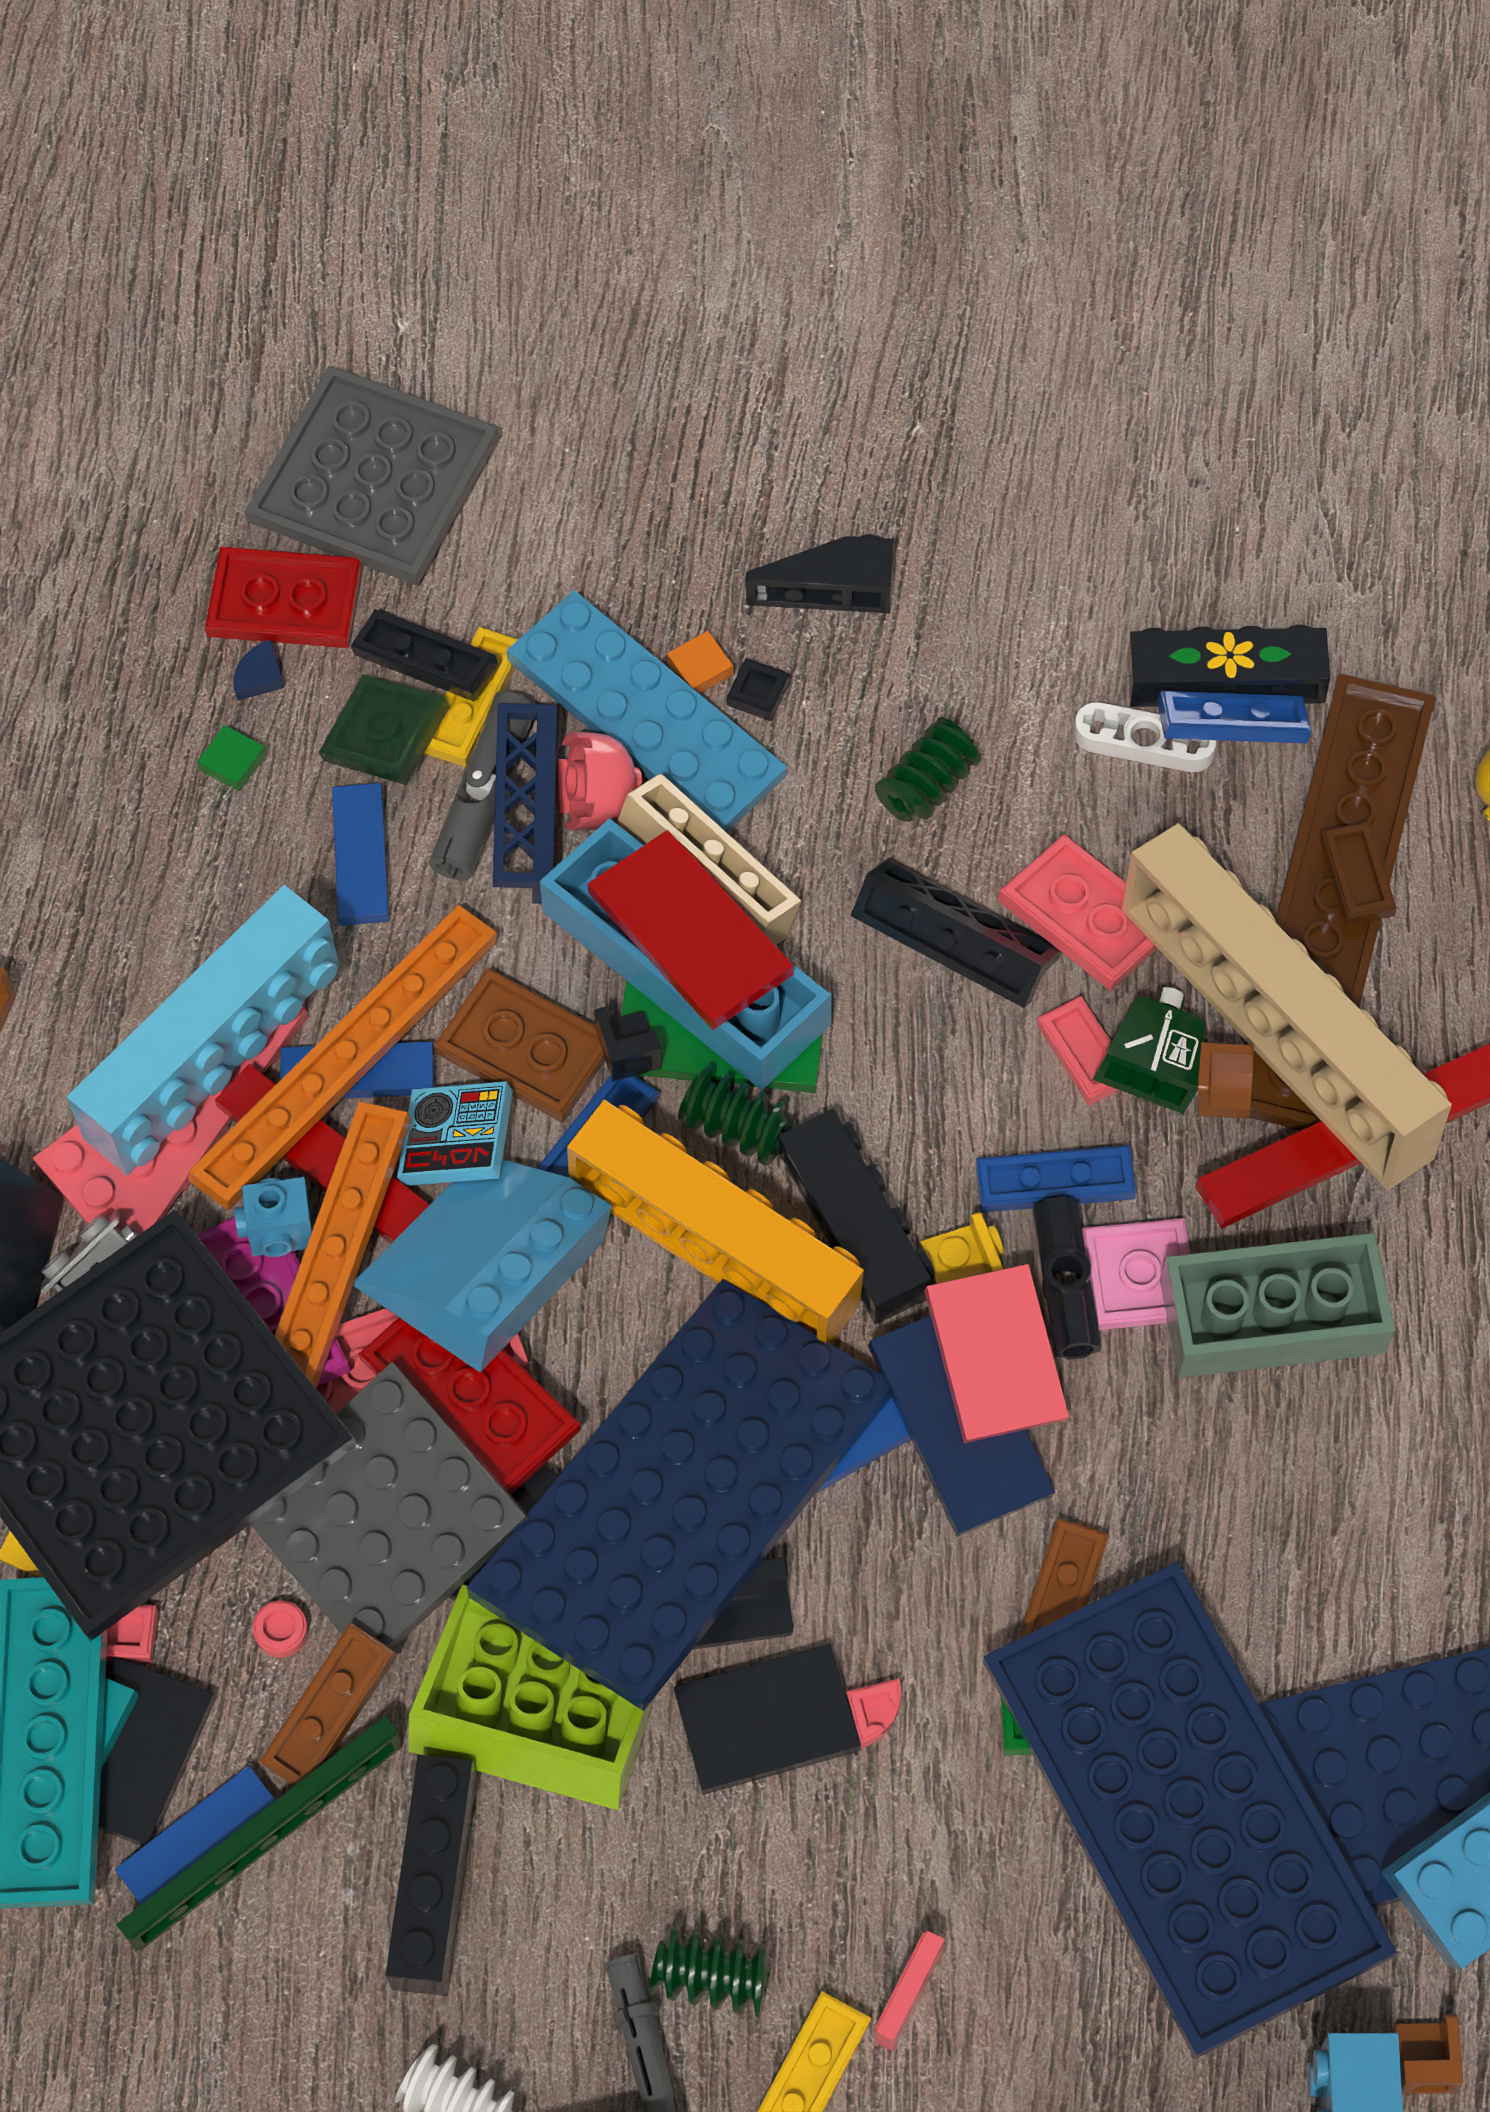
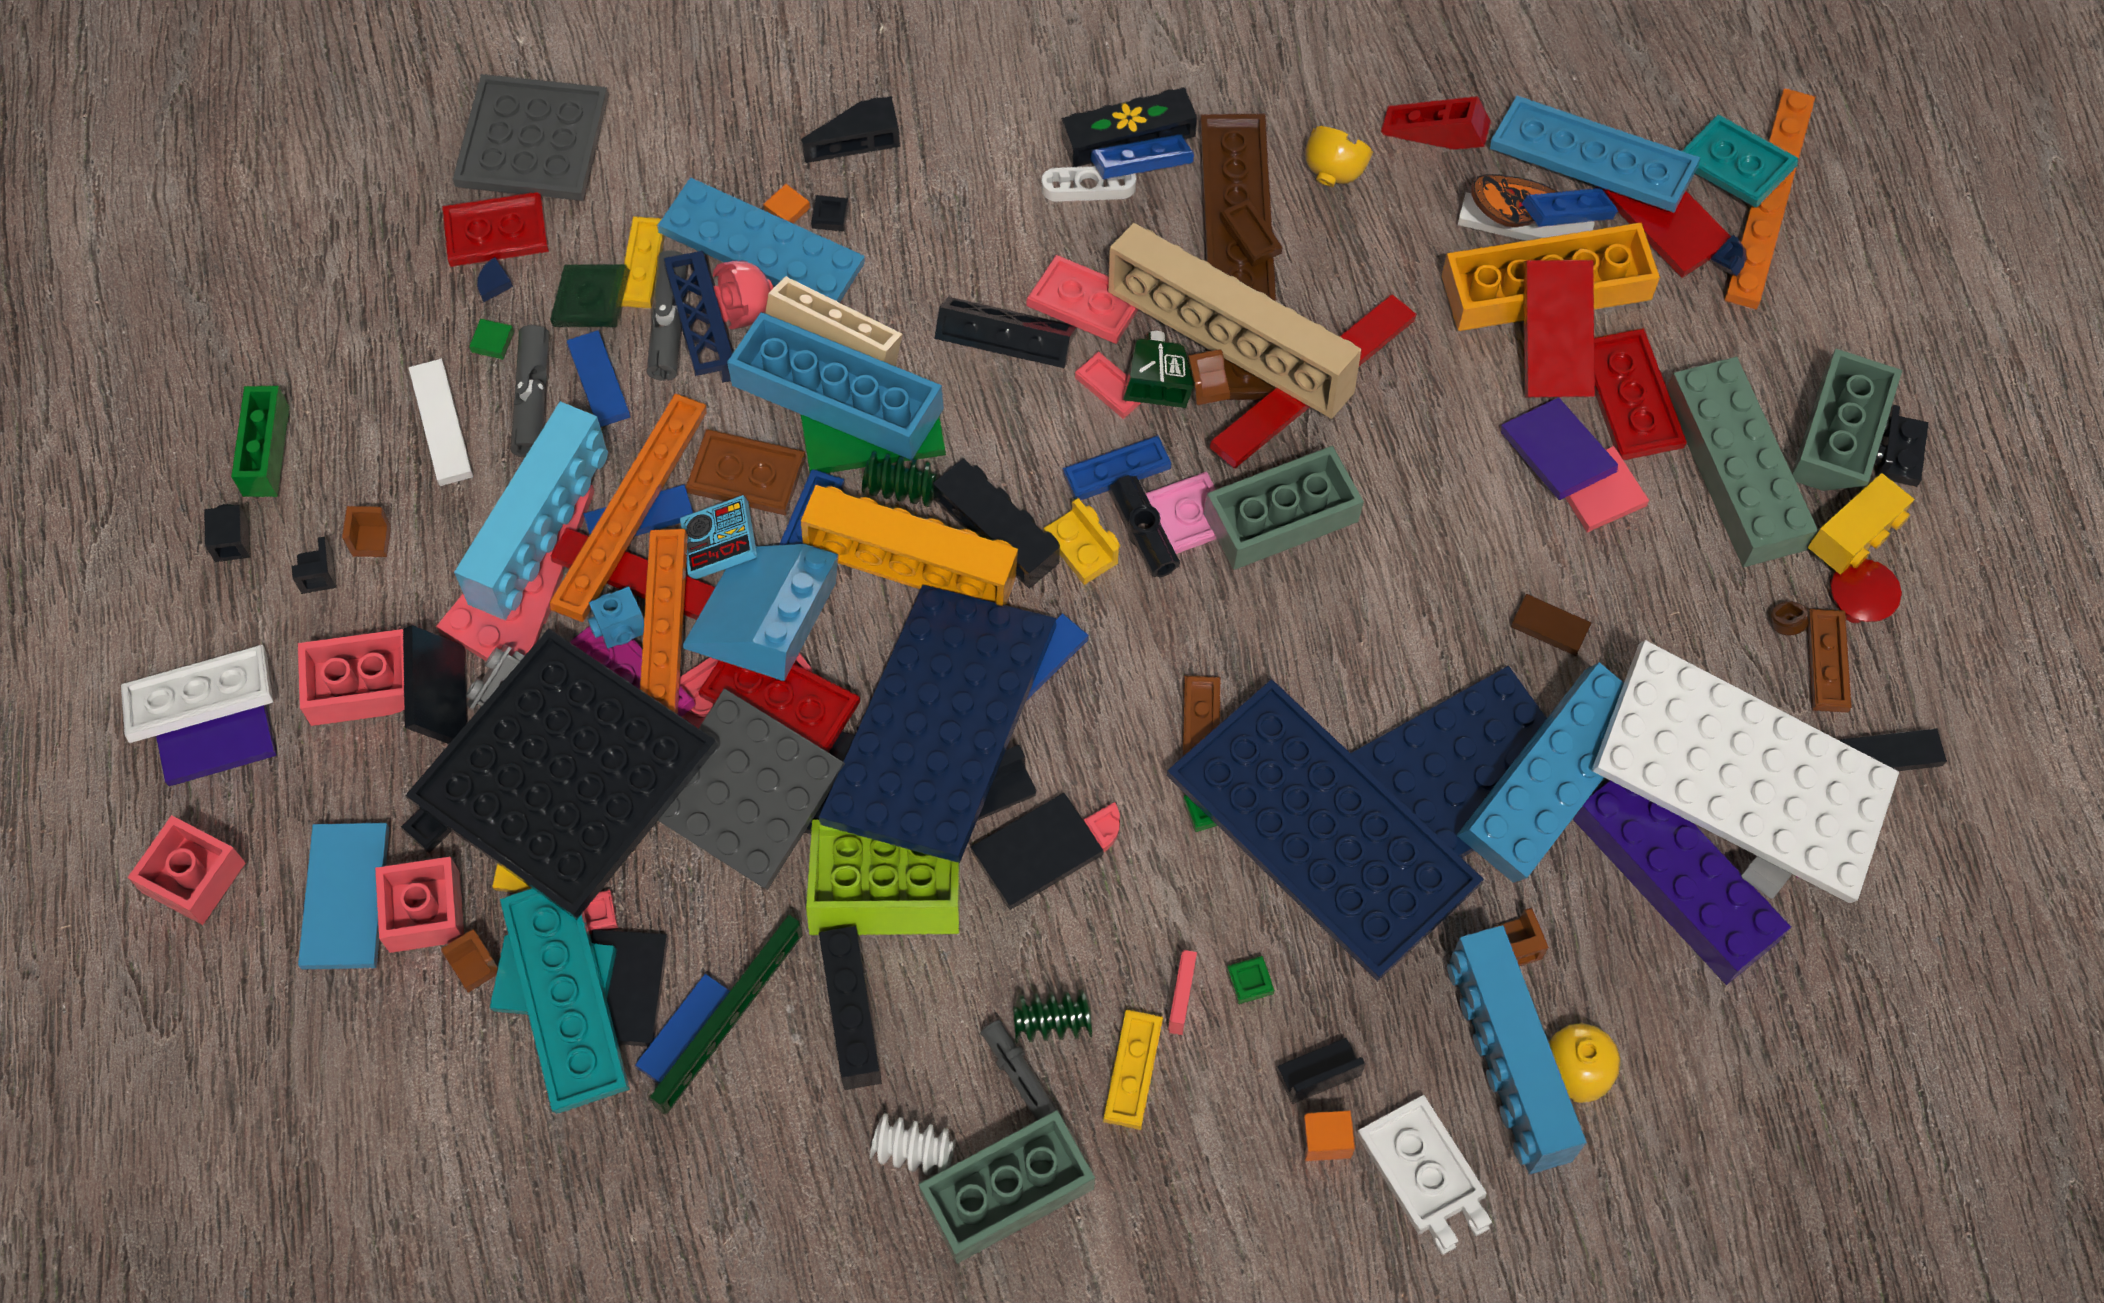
camera: 20 degrees left, 0 degrees up
(126, 862) = (440, 422): none -> white tile
(259, 853) = (529, 388): none -> dark grey piece
(280, 1629) = (698, 882): coral tile -> none
(329, 1705) = (747, 920): dark orange tile -> none
(424, 655) = (602, 242): black tile -> none
(627, 1044) = (815, 453): black panel -> none
(690, 929) = (837, 366): red tile -> none
(927, 770) = (957, 236): dark green piece -> none
(971, 1479) = (1104, 630): dark blue tile -> none
(996, 1353) = (1116, 582): coral tile -> none
(1015, 1999) = (1250, 980): none -> green tile

